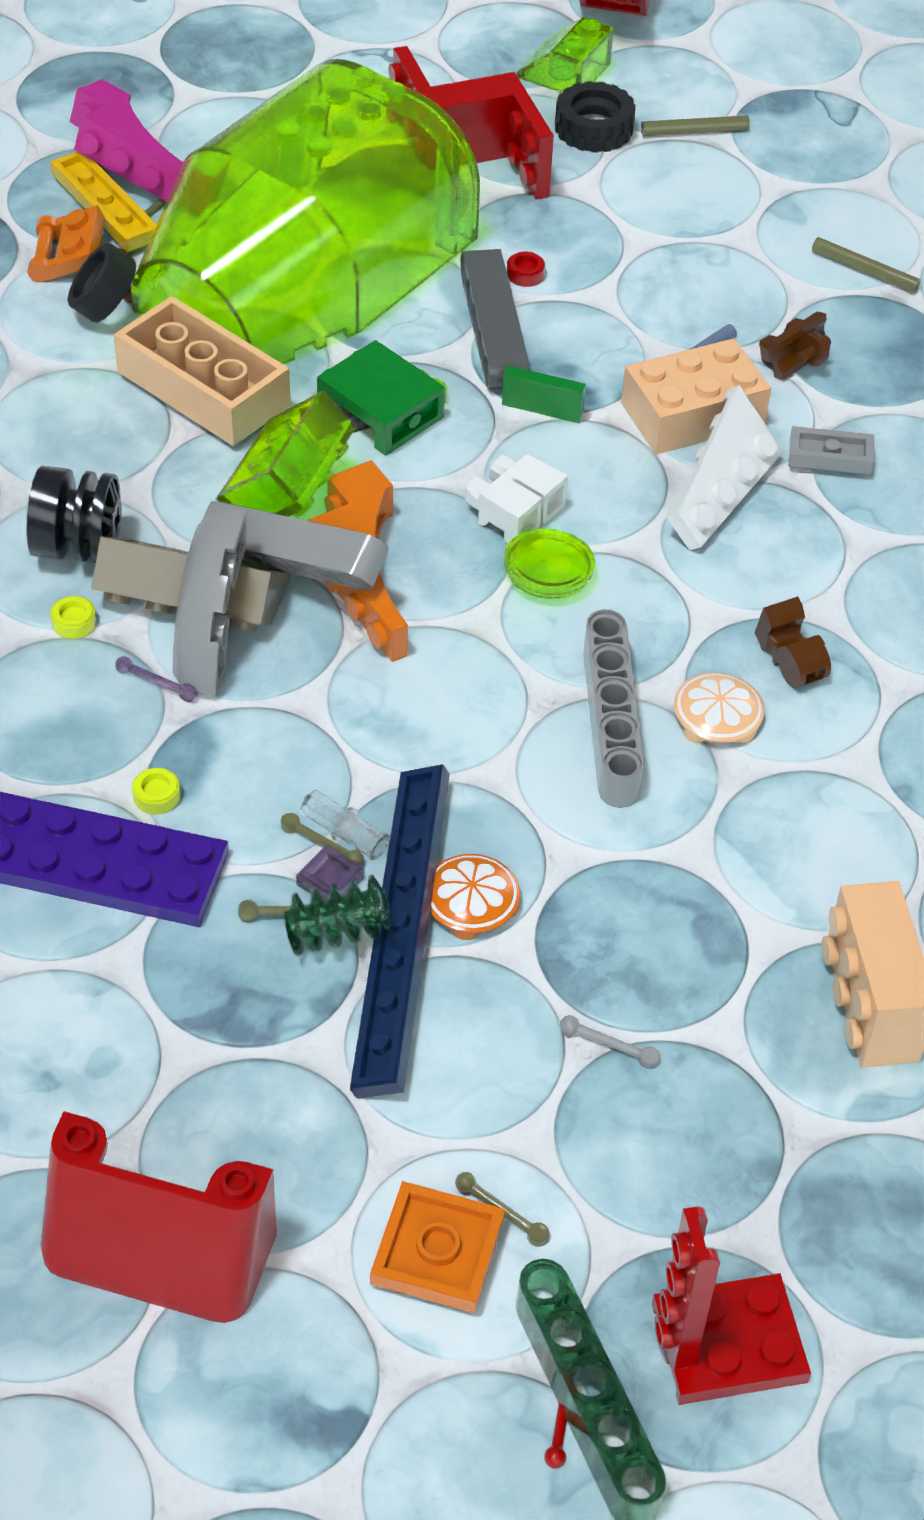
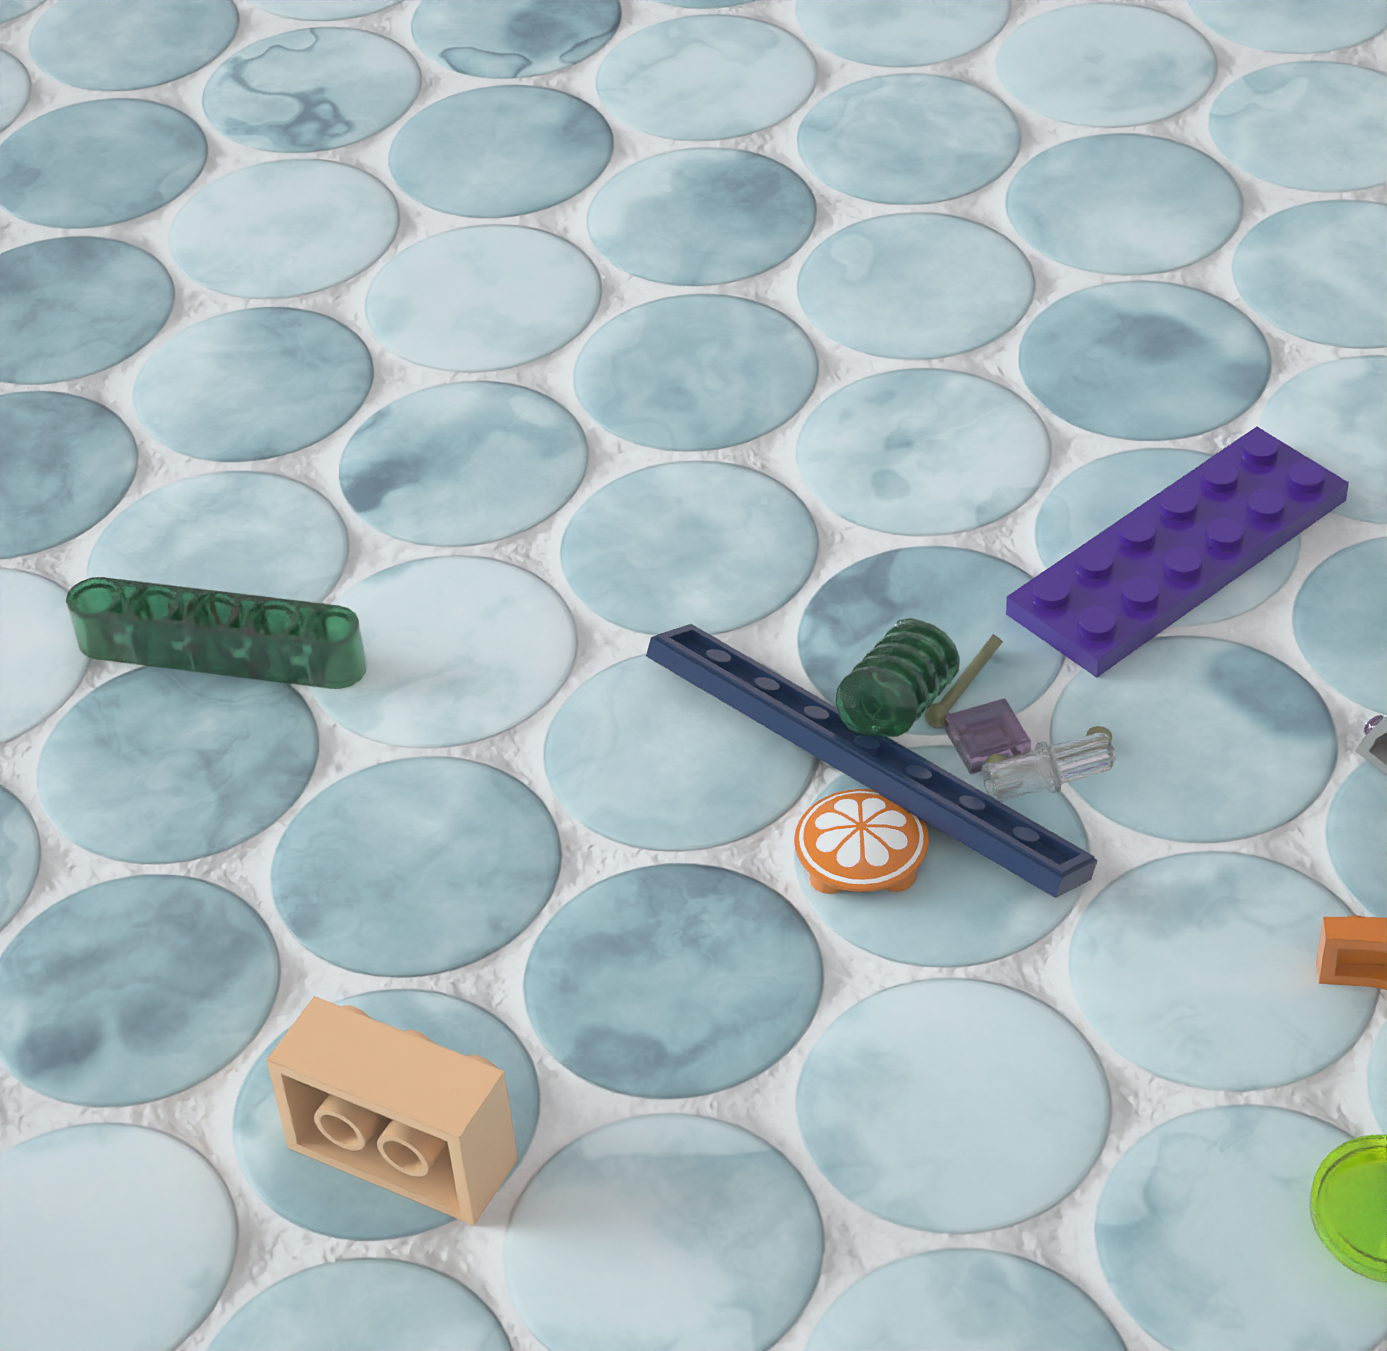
camera: 130 degrees right, 5 degrees down
(155, 1236) = (693, 369): red windscreen -> none
(156, 791) = (1230, 643): neon yellow tile -> none
(437, 1246) = (457, 606): orange plate -> none
(536, 1233) = (410, 697): olive hinge -> none
(613, 709) = (1052, 1123): light grey beam -> none
(648, 1056) = (518, 890): light grey hinge -> none
(718, 709) = (971, 1266): dish -> none
(723, 1334) = (178, 751): red bracket -> none

